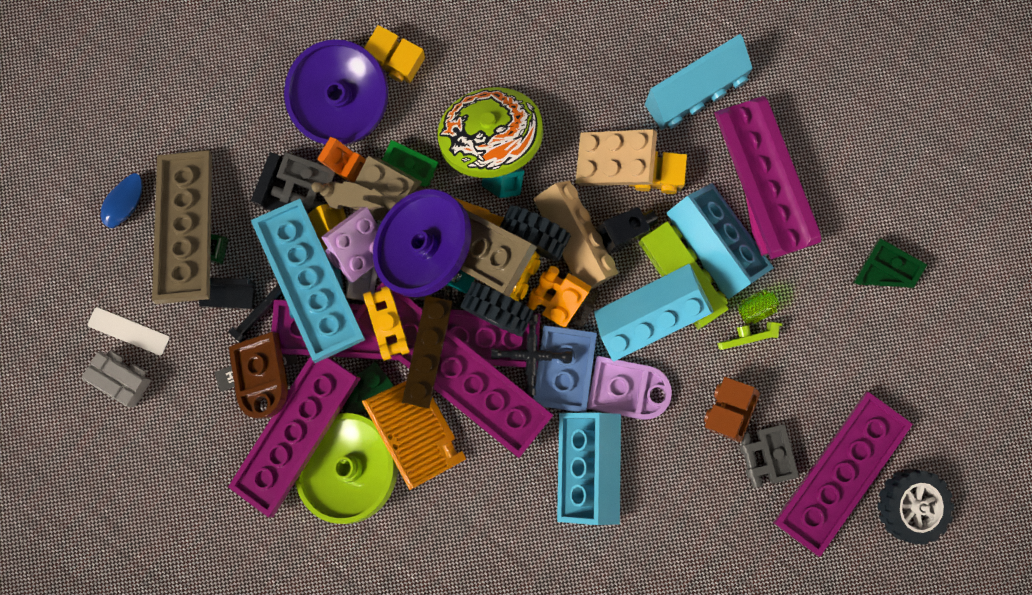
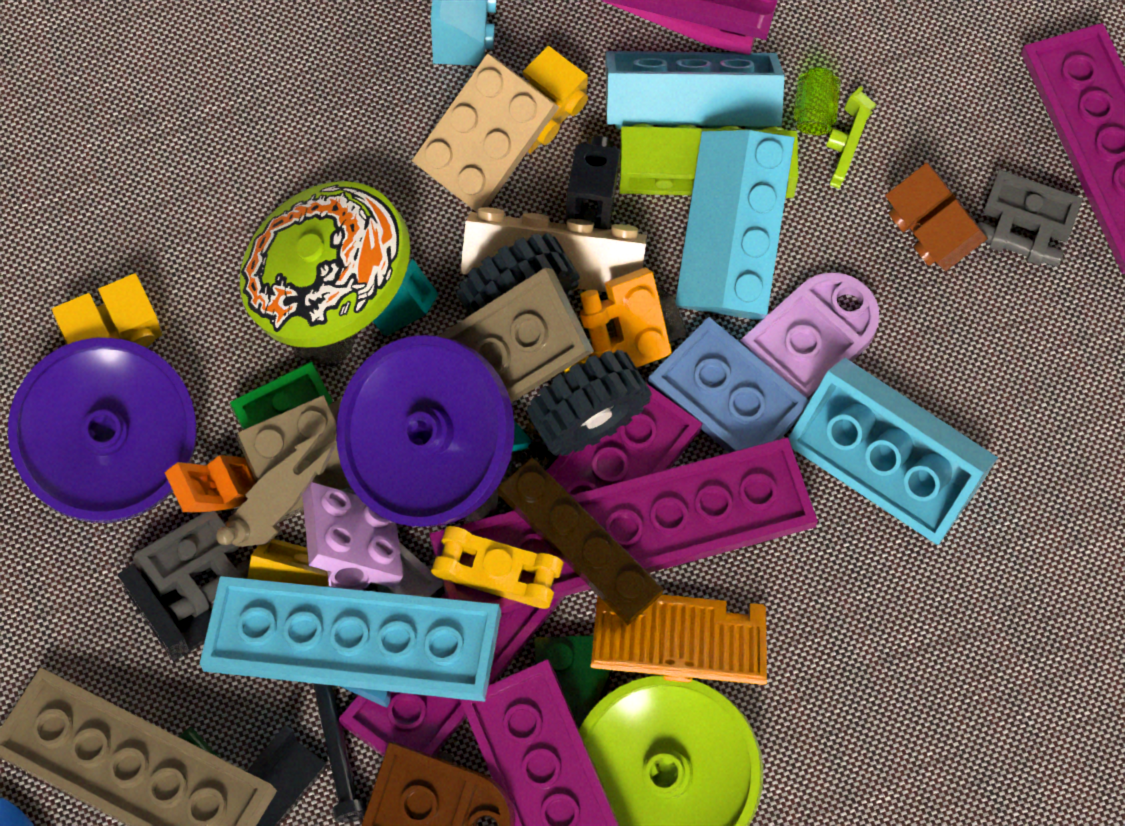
camera: 60 degrees left, 15 degrees down
(531, 355) = (682, 416): black piece -> none

